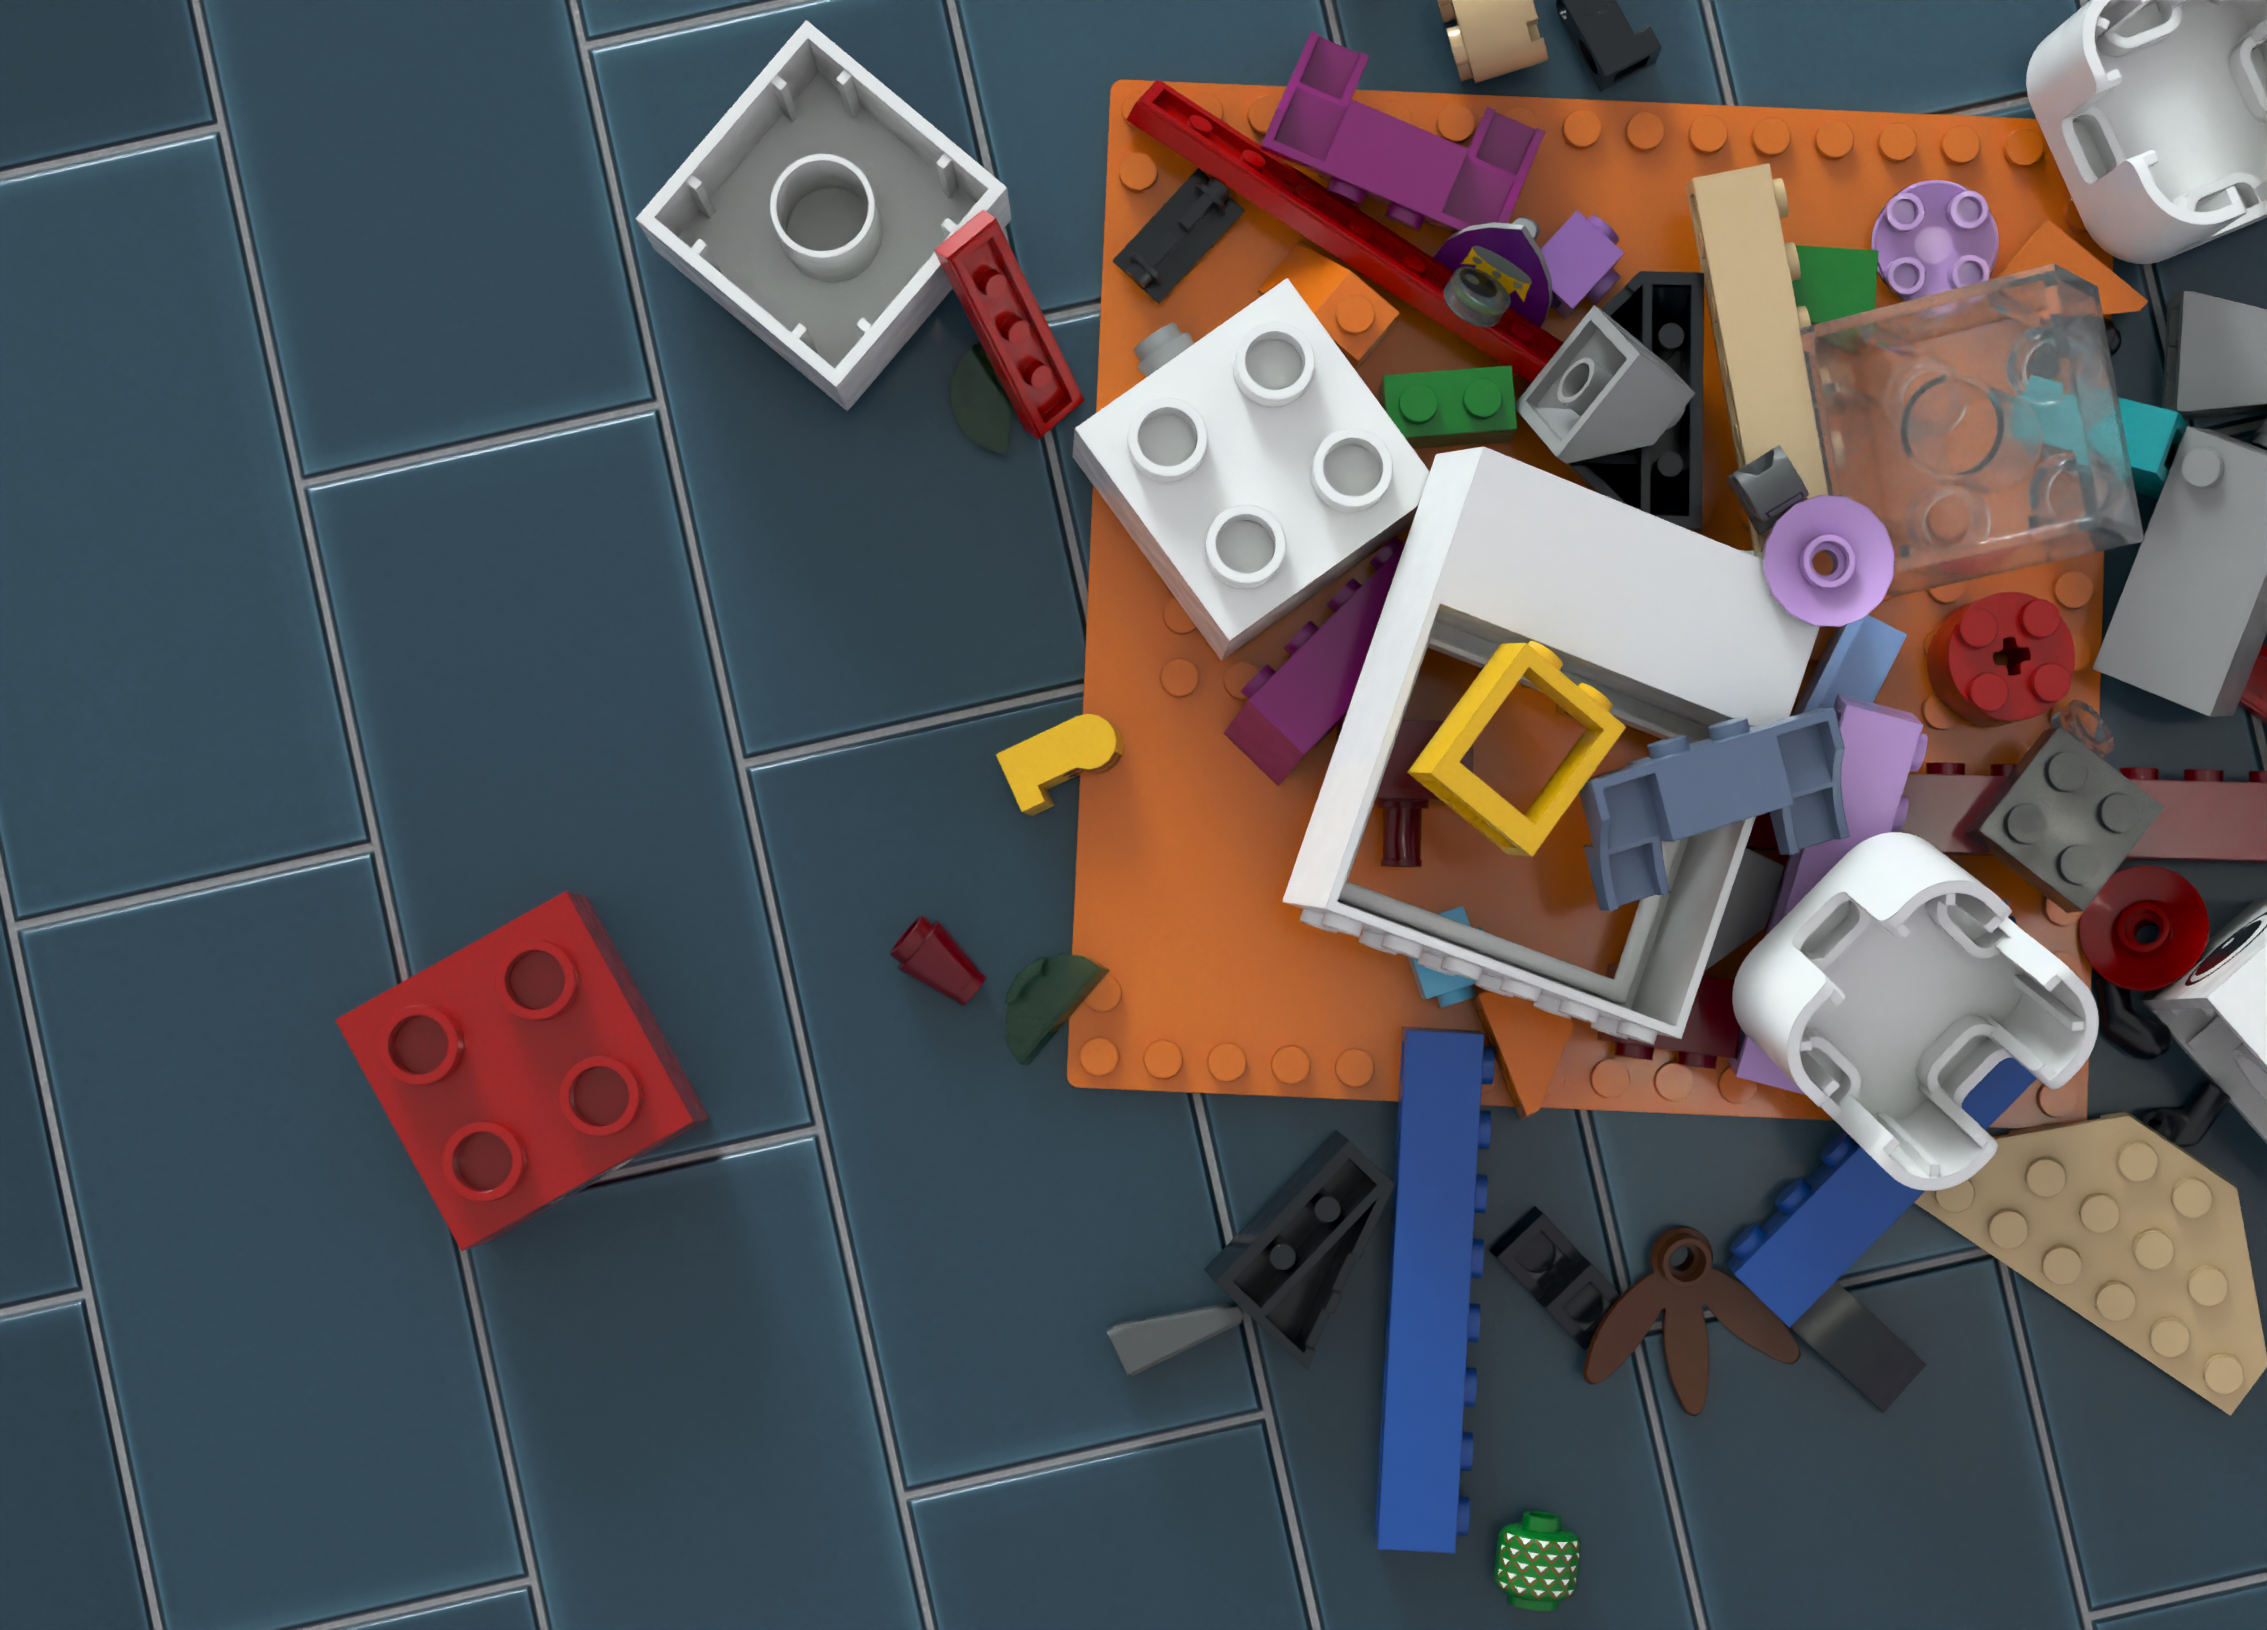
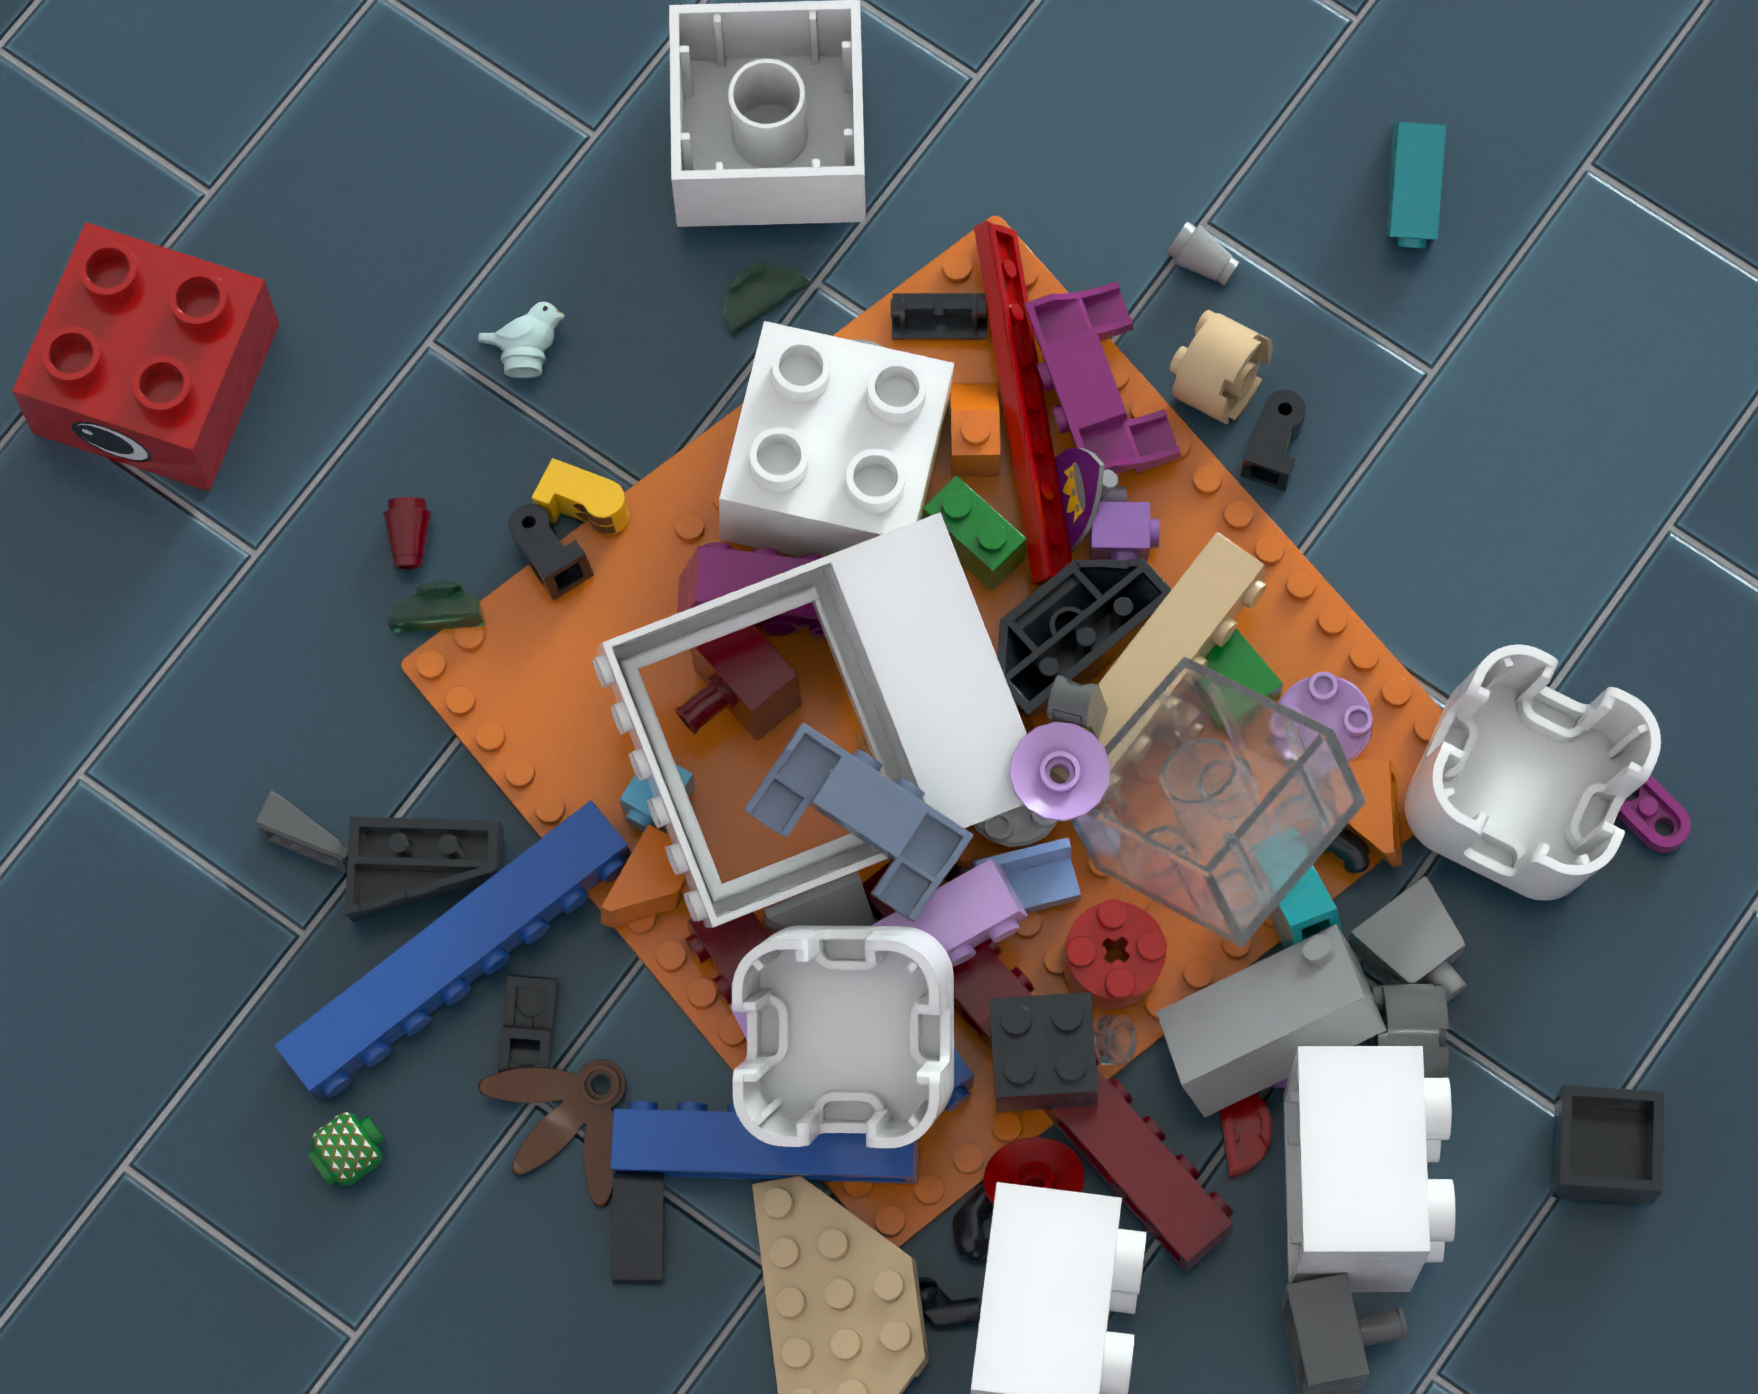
camera: 50 degrees right, 15 degrees down
(834, 667) = (526, 340): none -> light aqua animal
(1009, 324) = (799, 247): red tile -> none
(1064, 843) = (553, 564): none -> black leg
(1443, 774) = (737, 676): yellow window -> none
(1476, 297) = (1049, 489): clear light blue tile -> none
(1602, 393) = (1053, 593): light grey slope -> none

